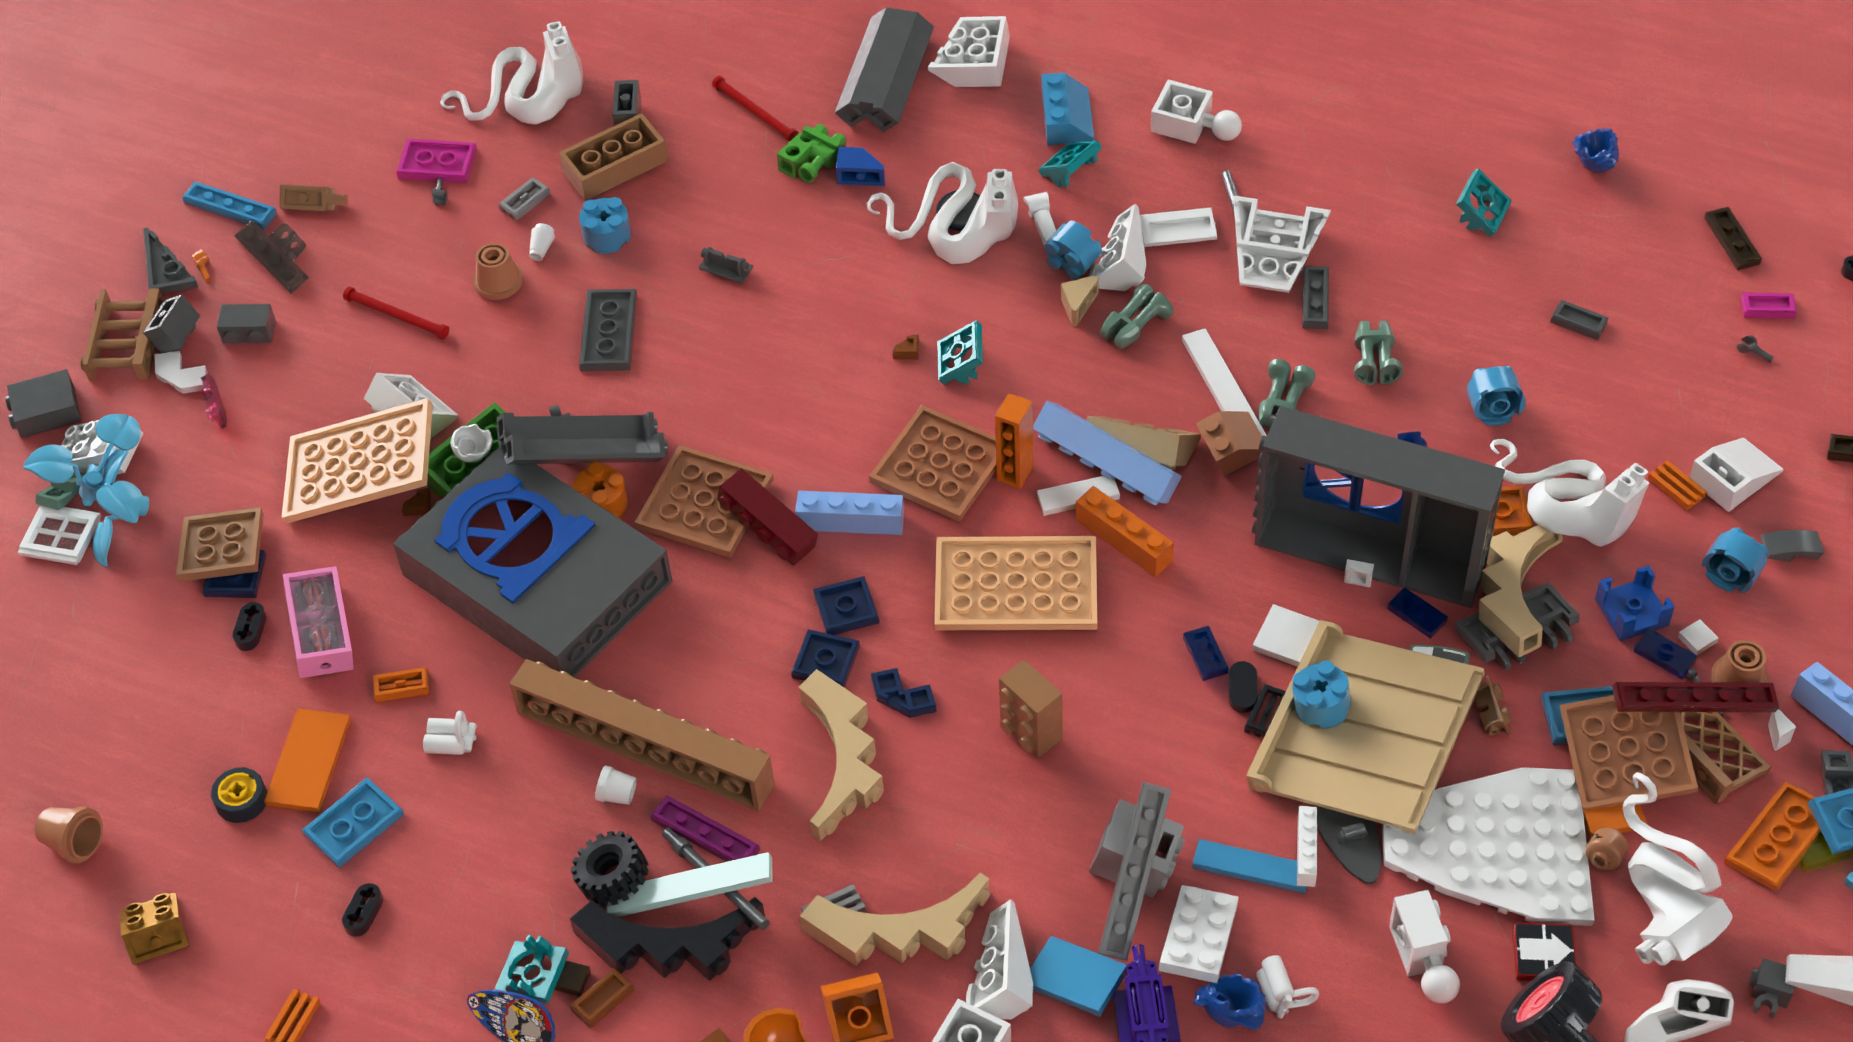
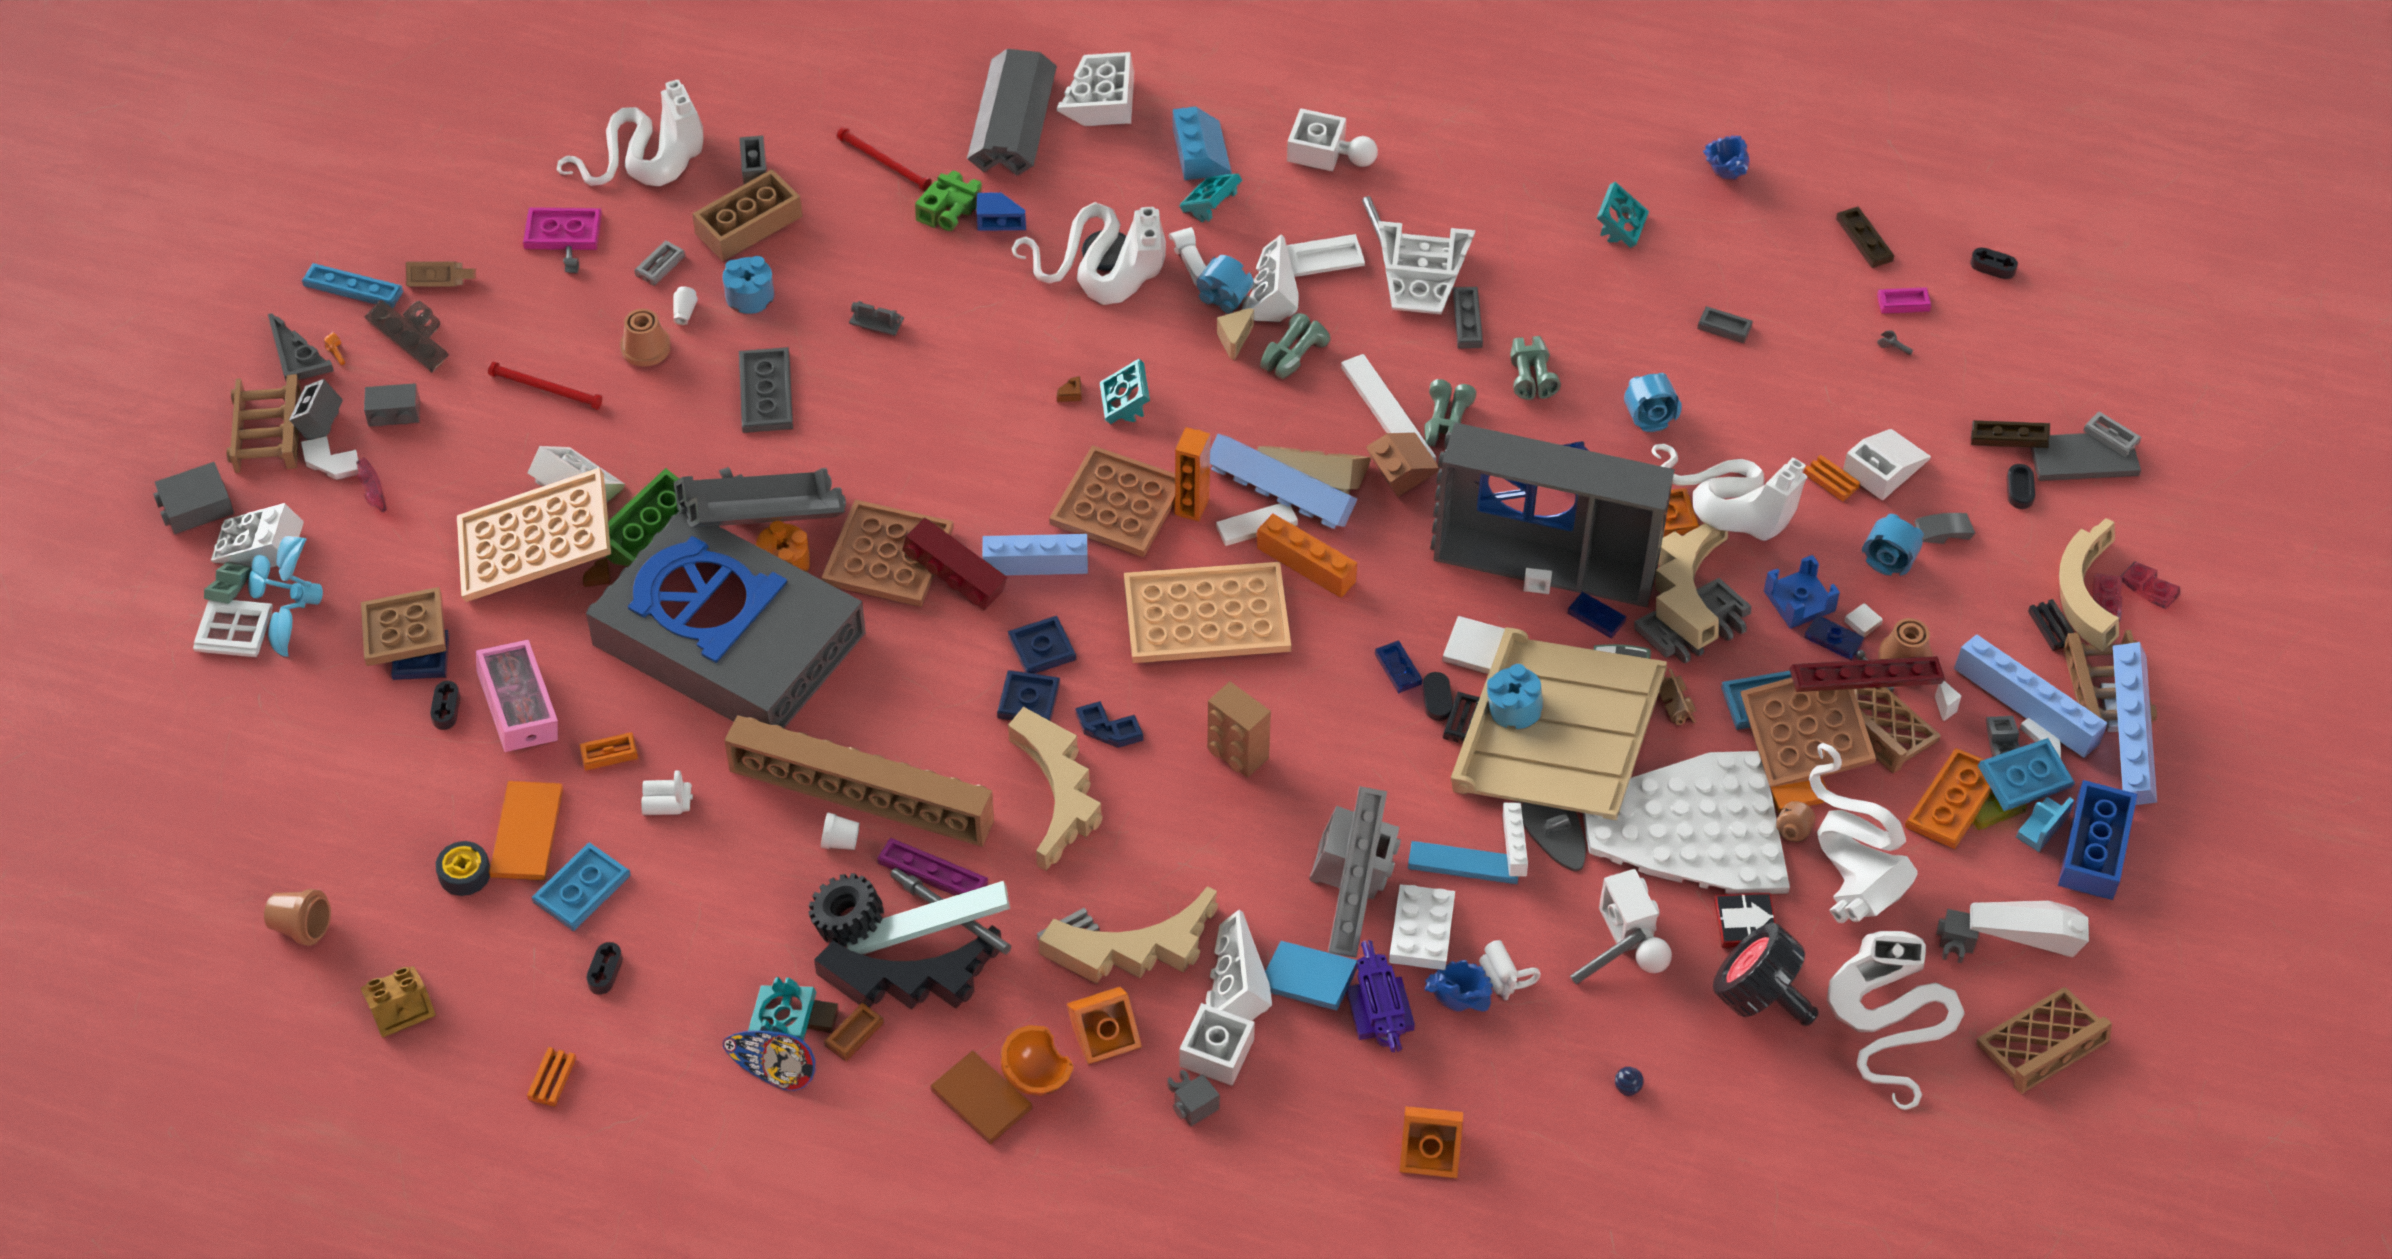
camera: 10 degrees left, 0 degrees up
(55, 466) = (235, 556): medium azure plant -> none
(471, 443) = (649, 509): white hair -> none
(1392, 981) = (1608, 956): none -> dark grey bar

